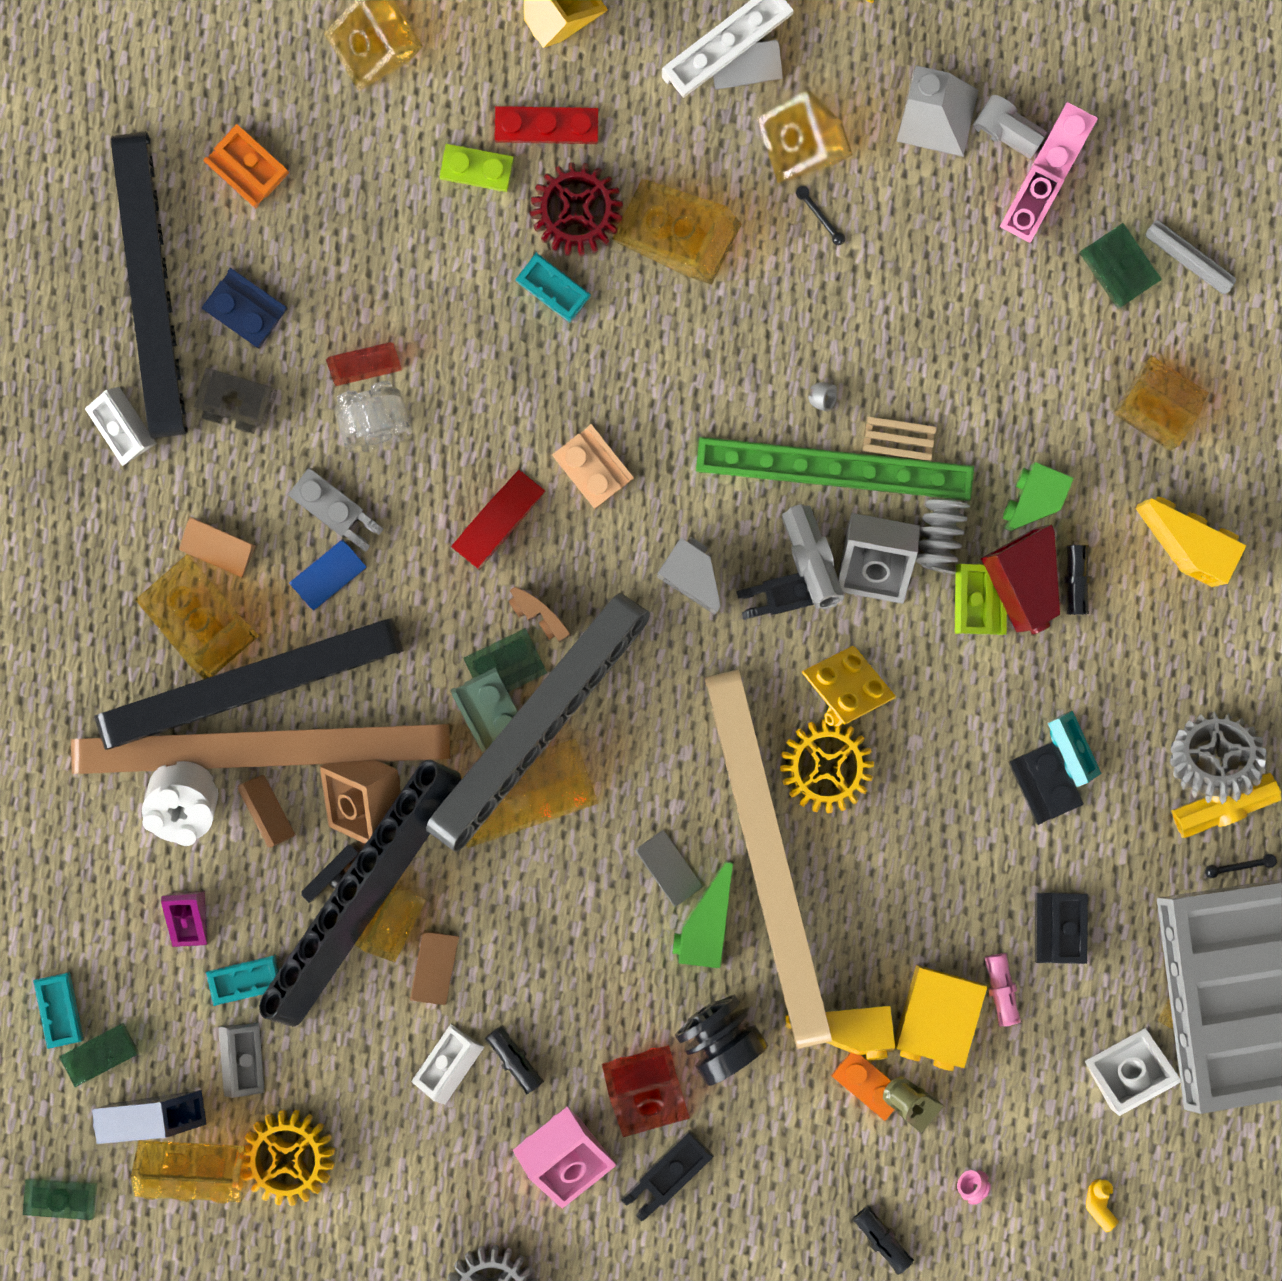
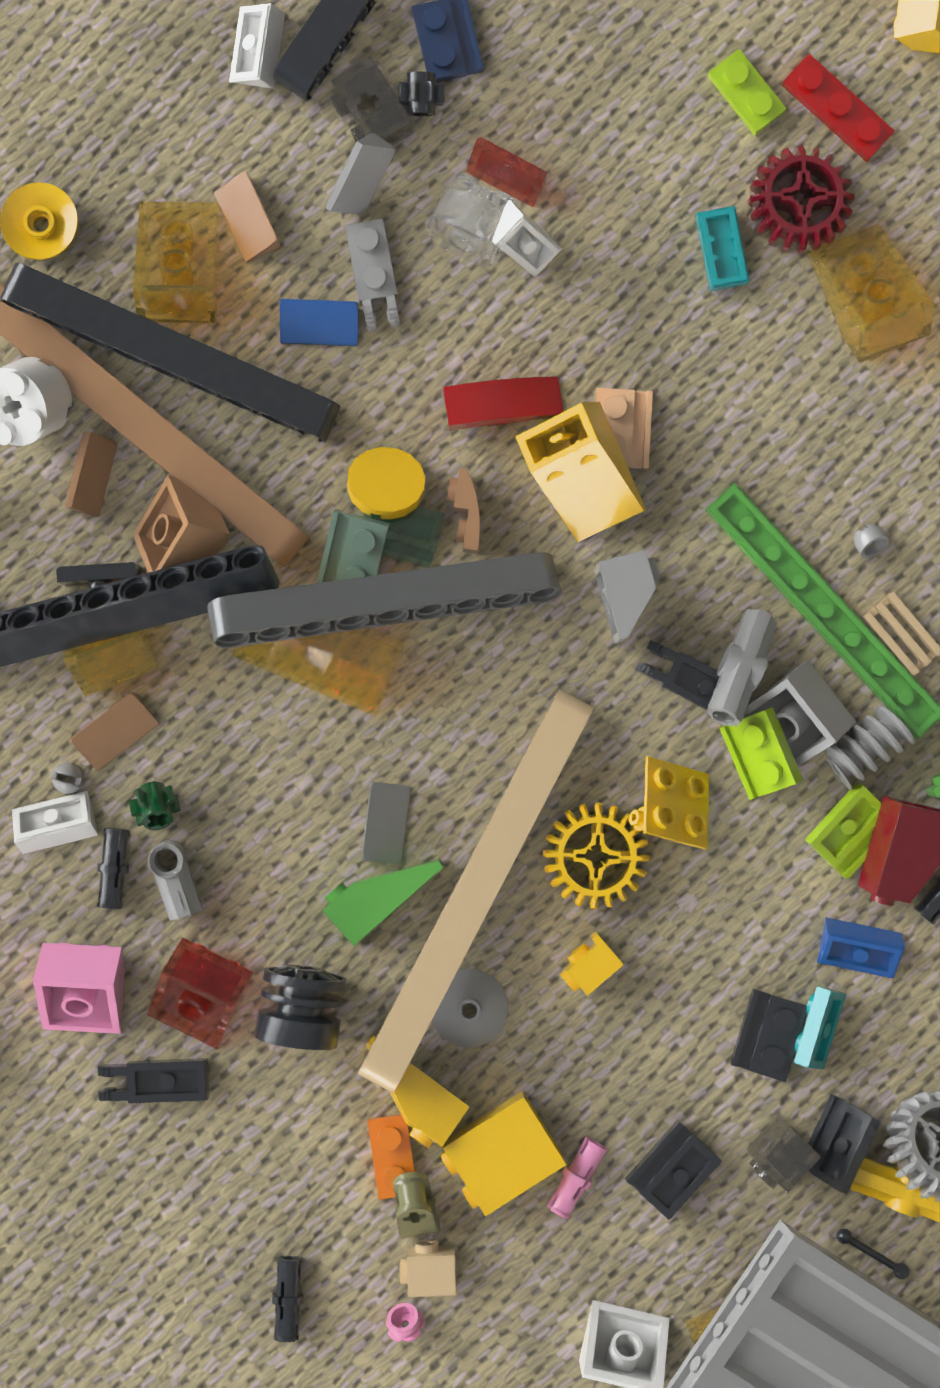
camera: 45 degrees right, 0 degrees up
(63, 667) = (28, 206): none -> yellow dish
(261, 362) = (421, 94): none -> black gear
(270, 452) = (361, 175): none -> light grey slope
(417, 399) = (524, 240): none -> white slope
(427, 1020) = (68, 769): none -> light grey hinge
(468, 642) = (386, 482): none -> yellow tile
(505, 993) = (154, 805): none -> dark green gear
(565, 1032) = (177, 883): none -> light grey piece
(591, 519) = (582, 470): none -> yellow slope
(852, 937) = (491, 1004): none -> light grey dish
(876, 602) = (761, 754): none -> lime plate
(887, 842) = (590, 965): none -> yellow brick
(959, 1137) = (429, 1269): none -> tan brick
(1055, 671) = (860, 948): none -> blue slope
(1121, 854) = (781, 1155): none -> clear smoke brick
(1153, 813) = (842, 1142): none -> black plate

